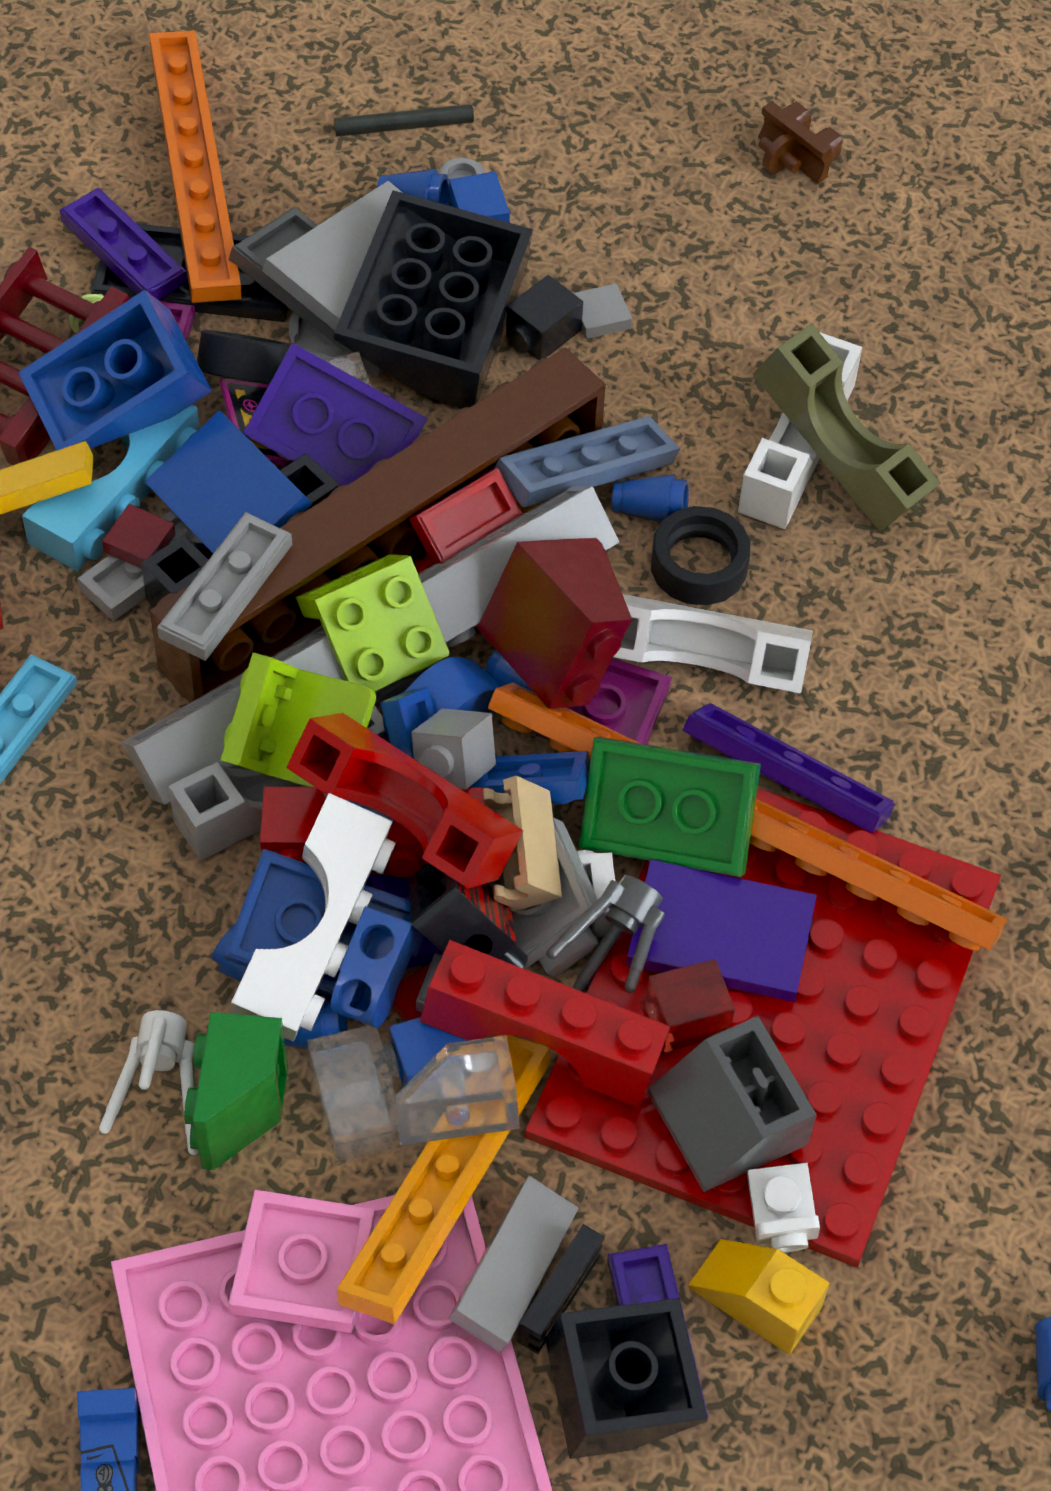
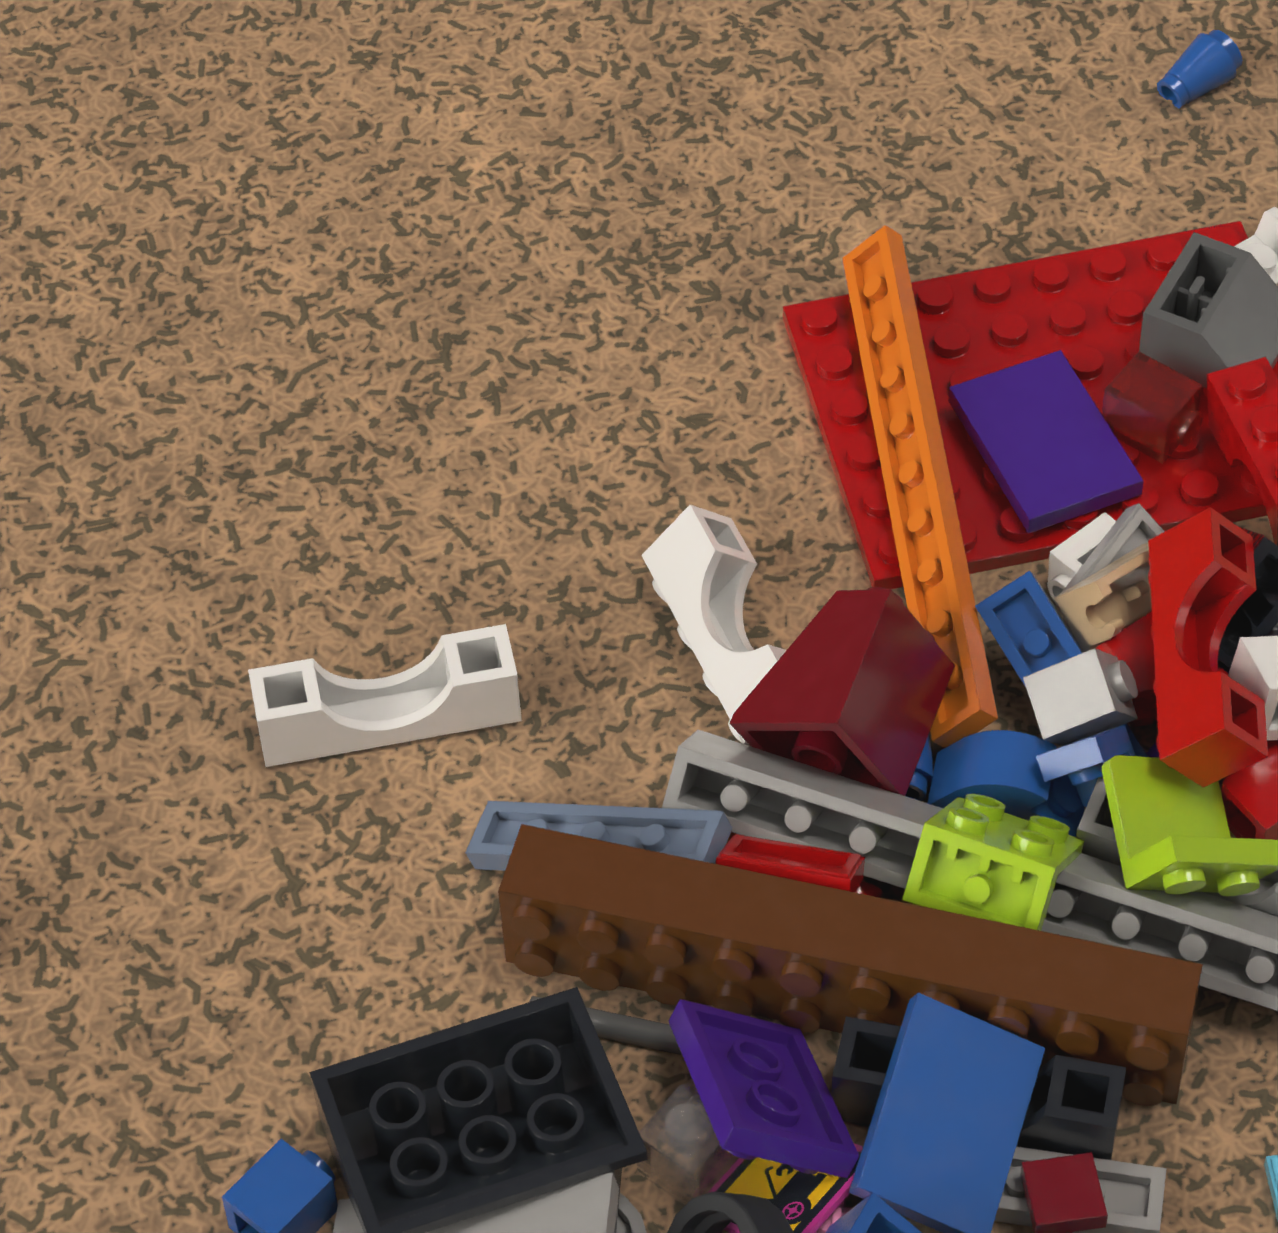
camera: 120 degrees left, 5 degrees down
(225, 586) = (1101, 976): light grey tile -> none
(543, 318) = (399, 1014): black brick -> none
(604, 311) = (332, 1002): light grey tile -> none
(631, 907) = (1107, 481): dark grey plant -> none
(651, 497) = (569, 775): blue cone -> none
(669, 806) = (969, 510): green tile -> none
(700, 587) = (622, 747): black tyre -> none
(790, 767) = (810, 505): dark purple tile -> none
(808, 388) = (365, 661): olive arch -> none

